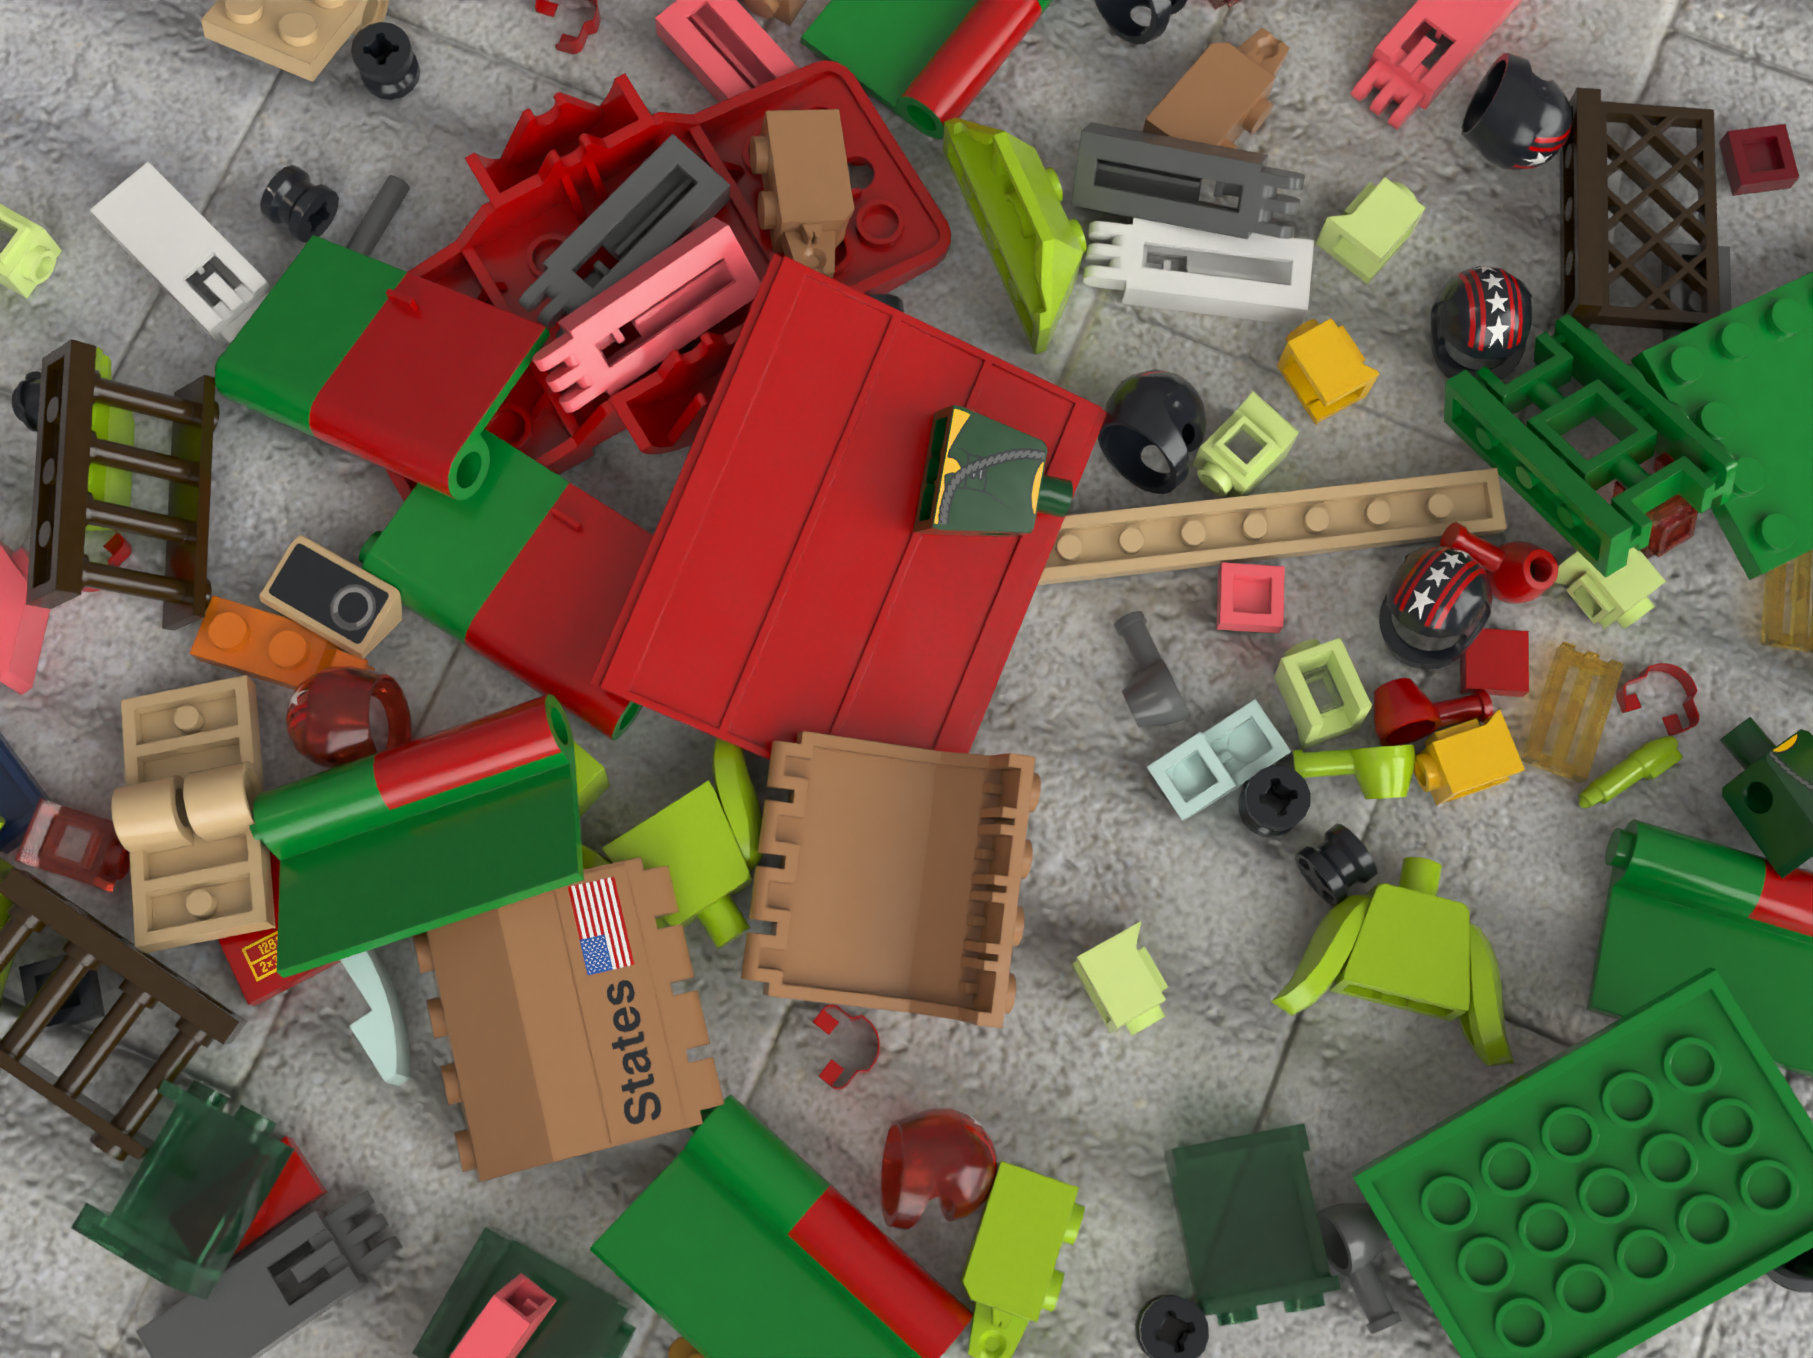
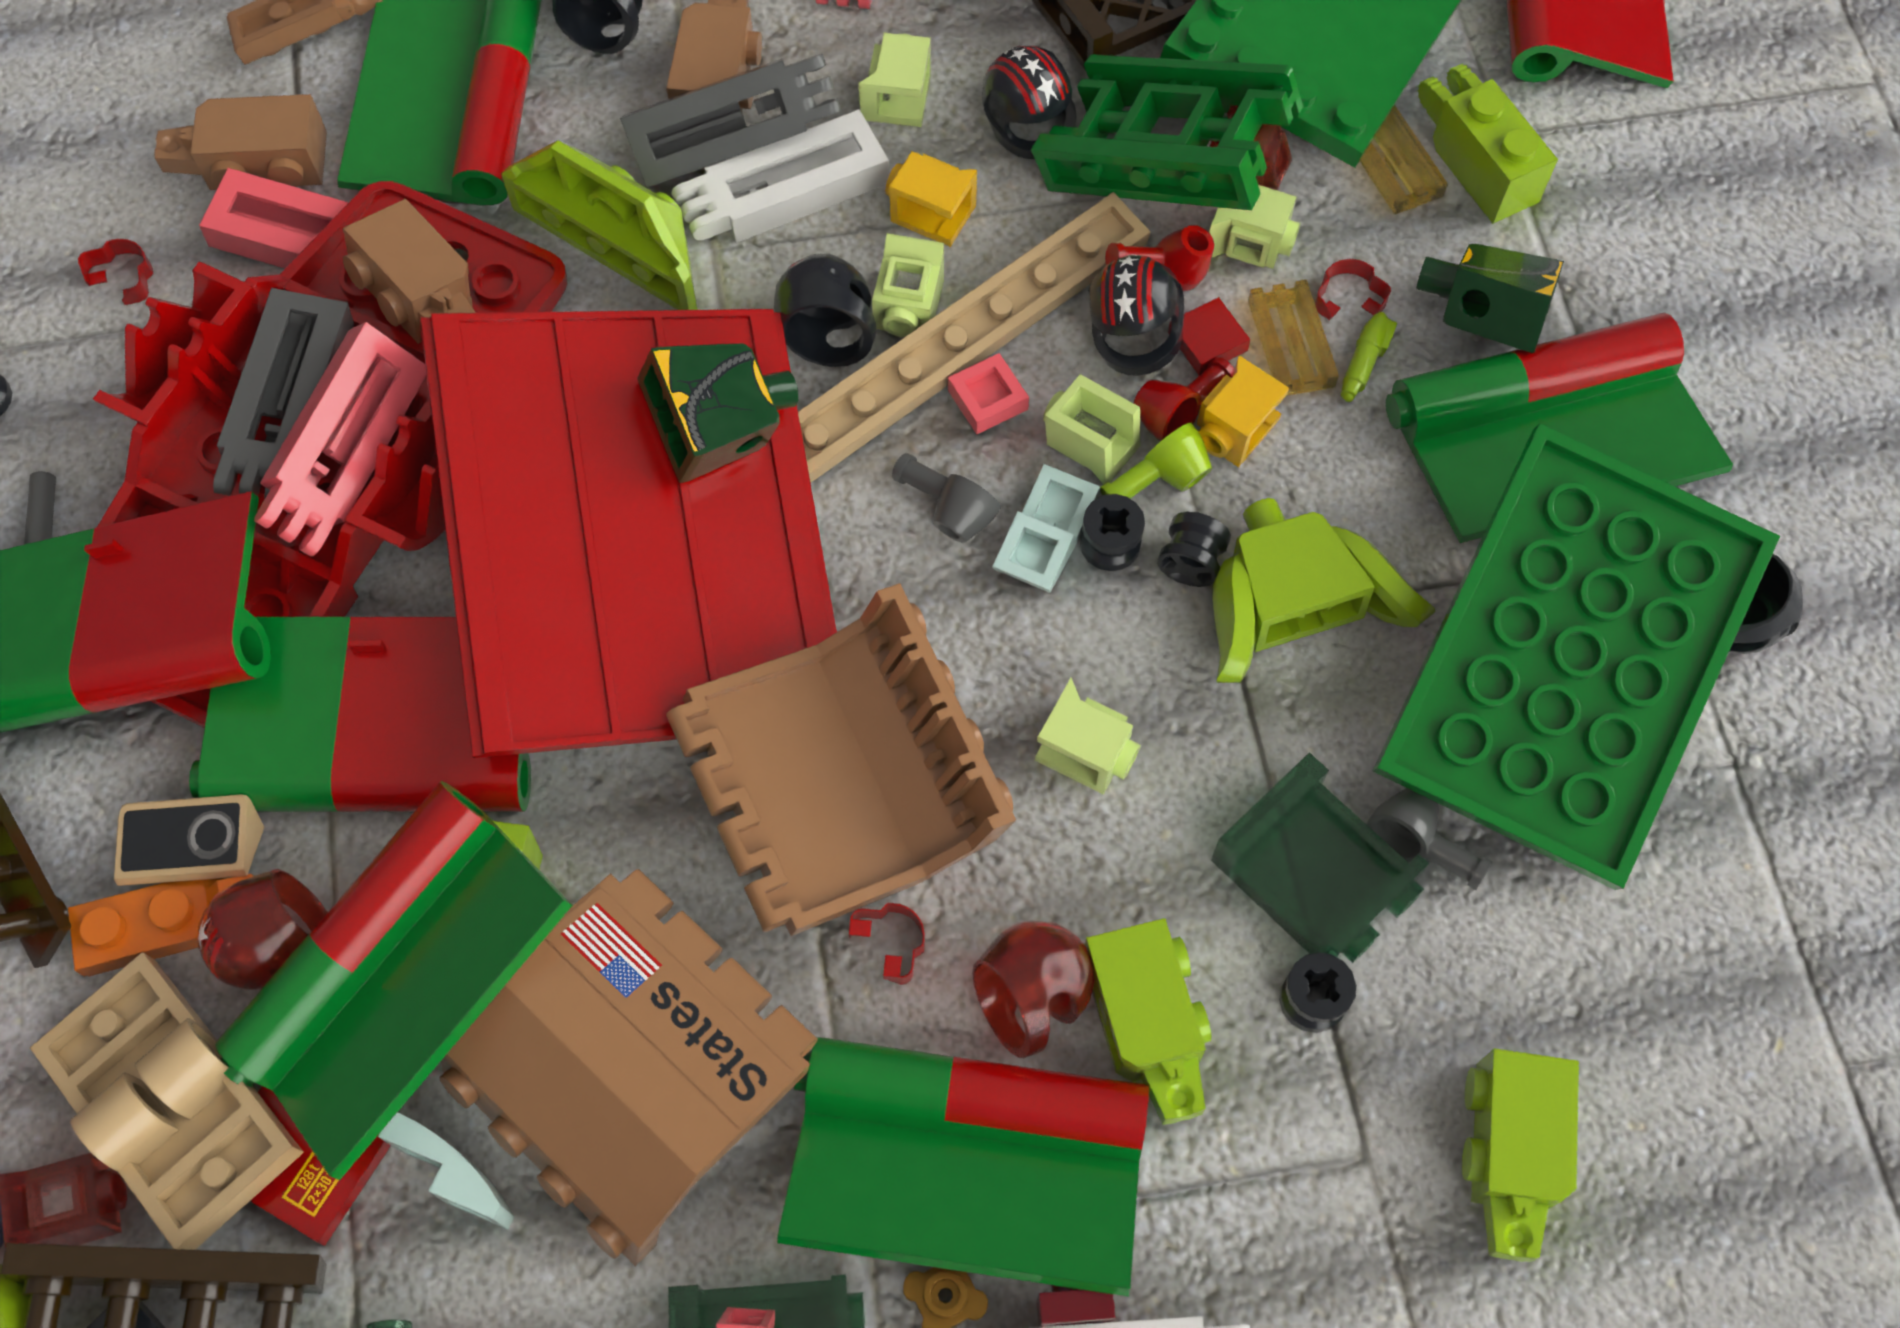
camera: 30 degrees left, 10 degrees down
(706, 844) = (666, 835): lime torso -> none

